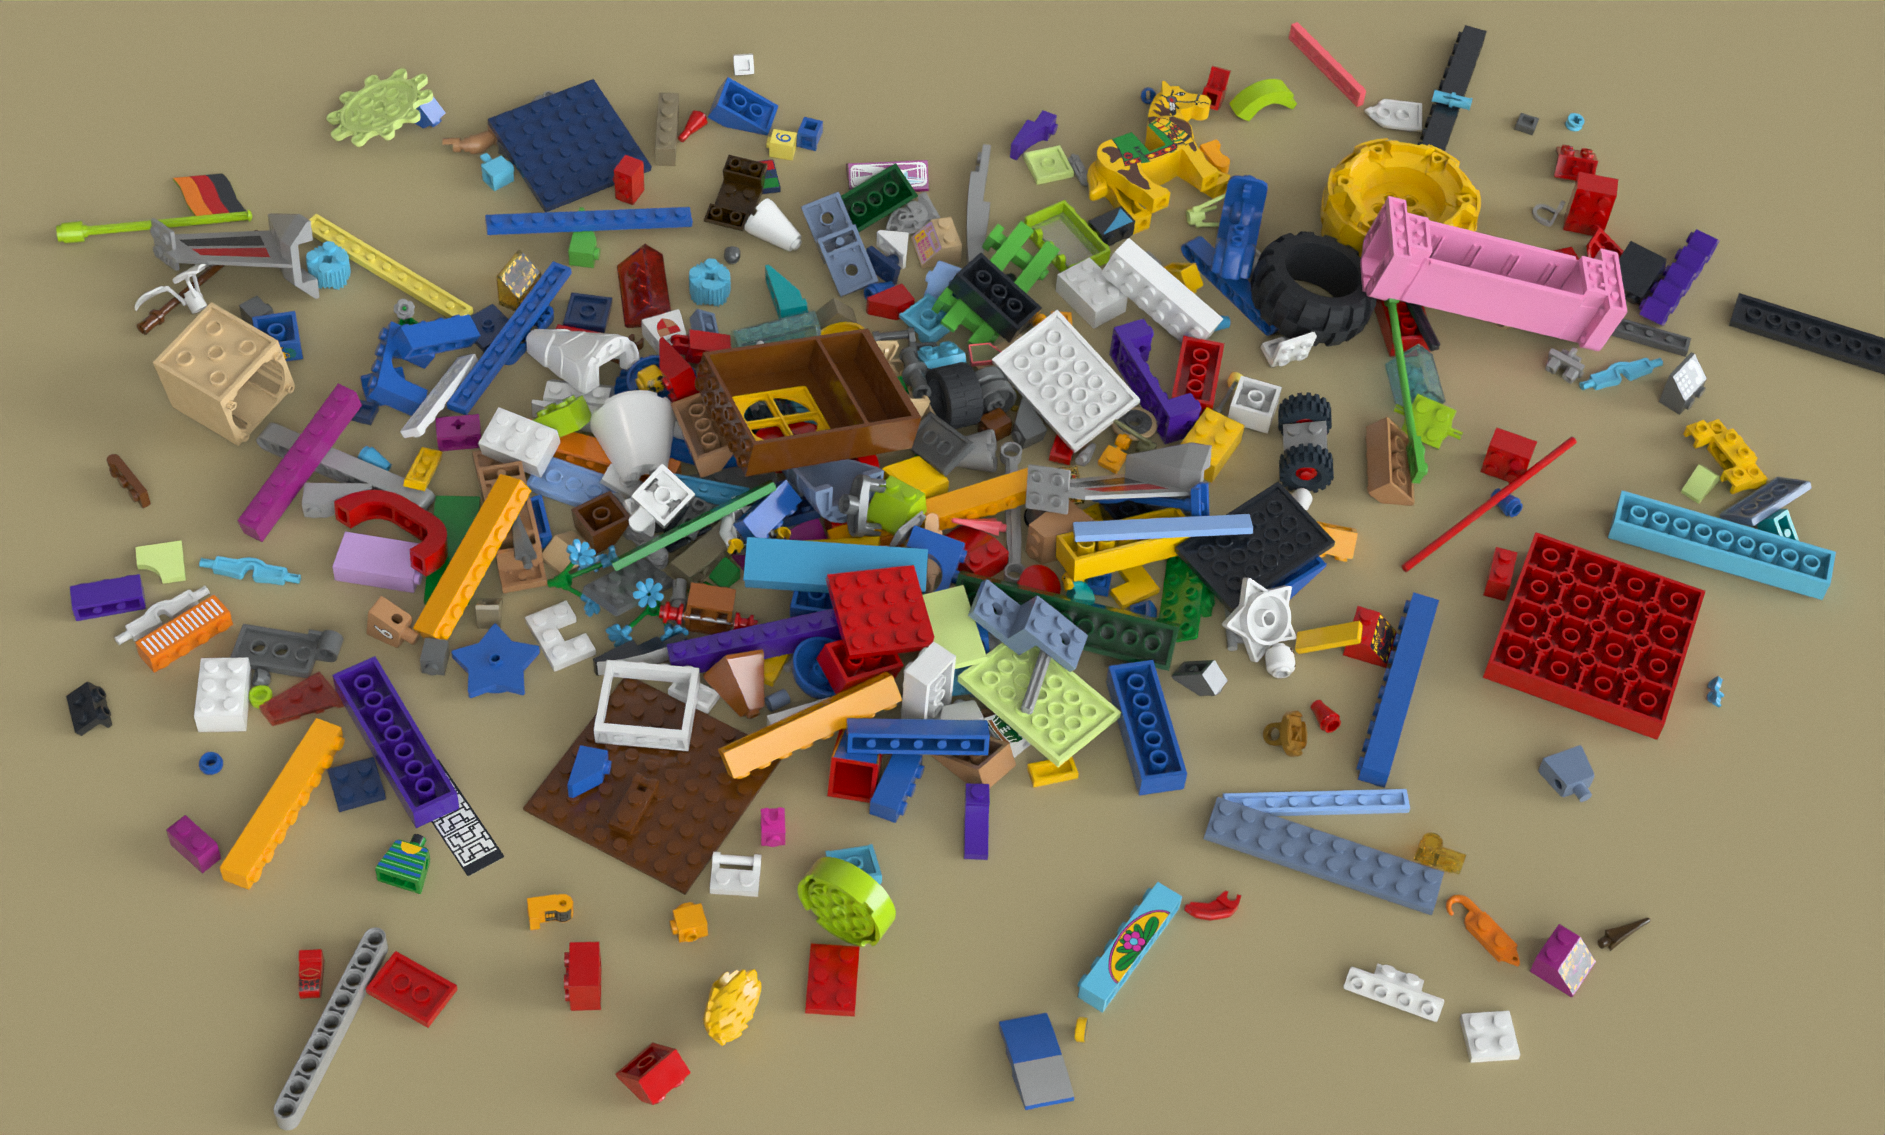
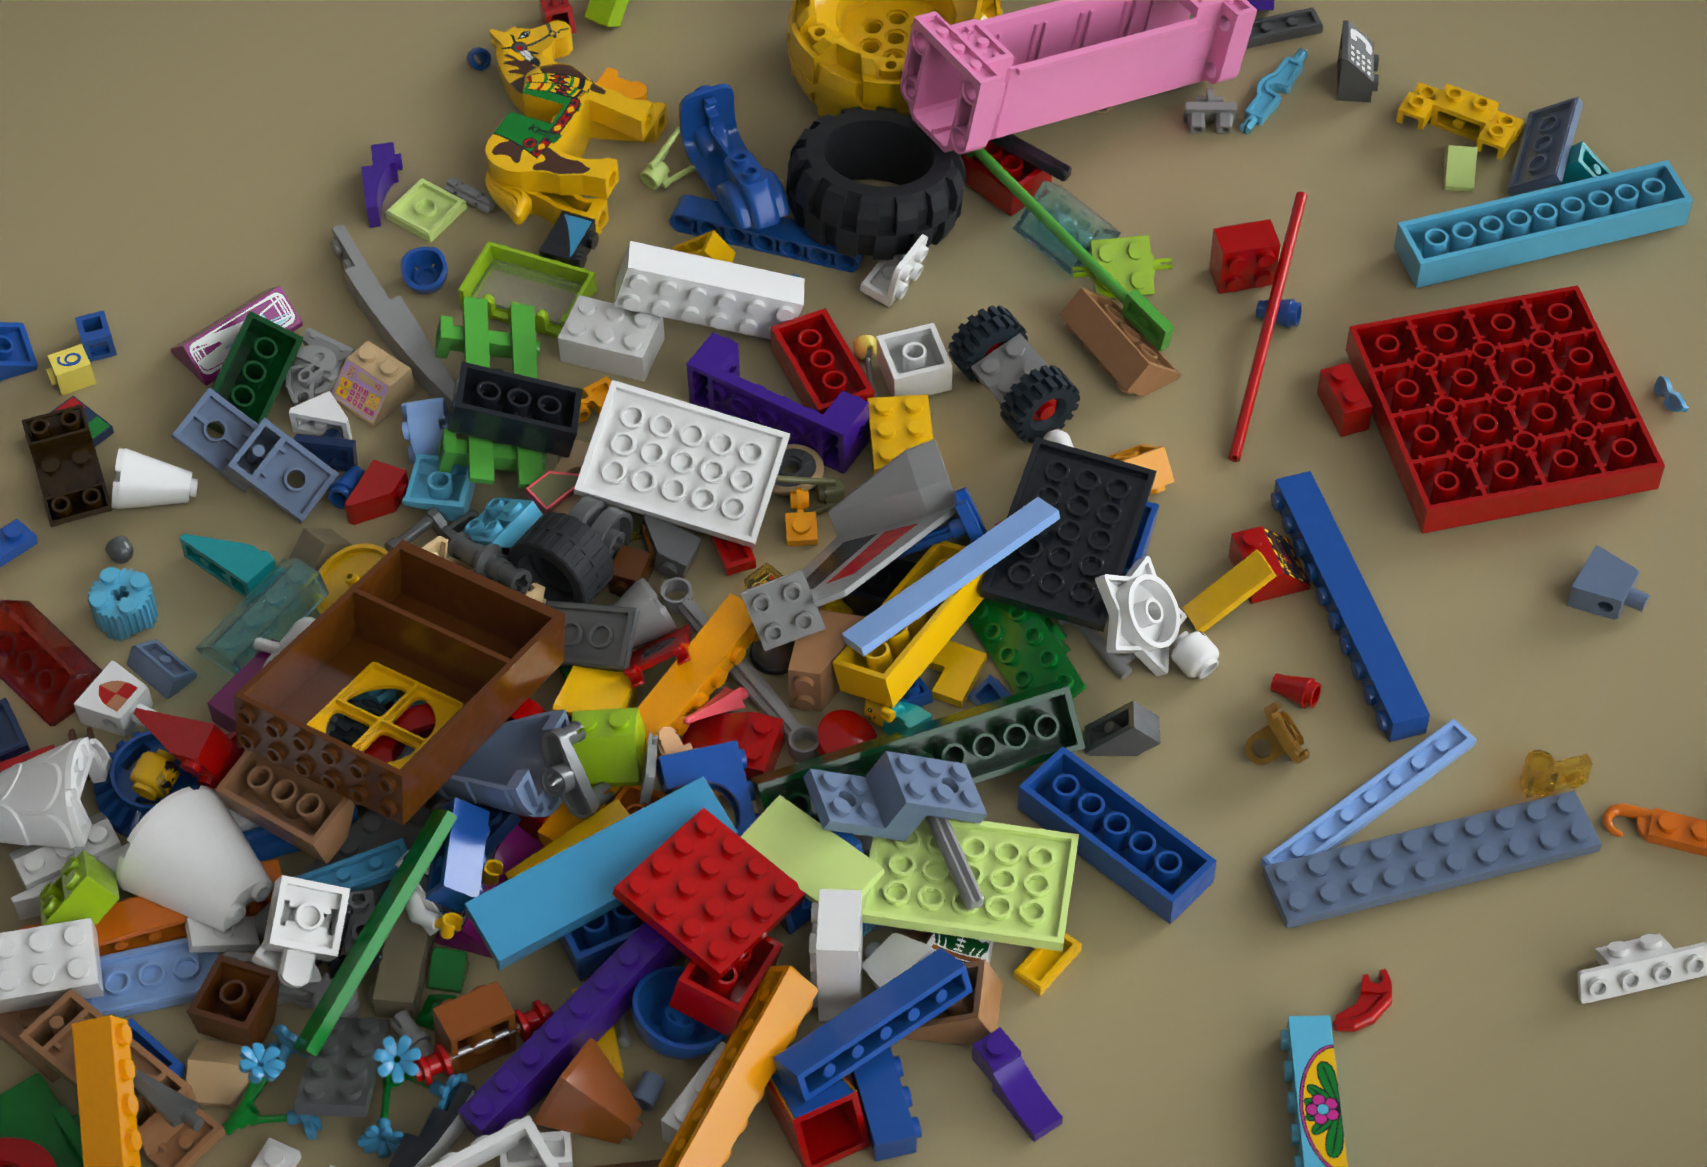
camera: 30 degrees left, 0 degrees up
(698, 342) = (184, 689): red brick -> none
(968, 475) = (670, 645): none -> red flag
(1017, 203) = (426, 278): none -> blue helmet
(1086, 455) = (765, 545): light grey bar -> none

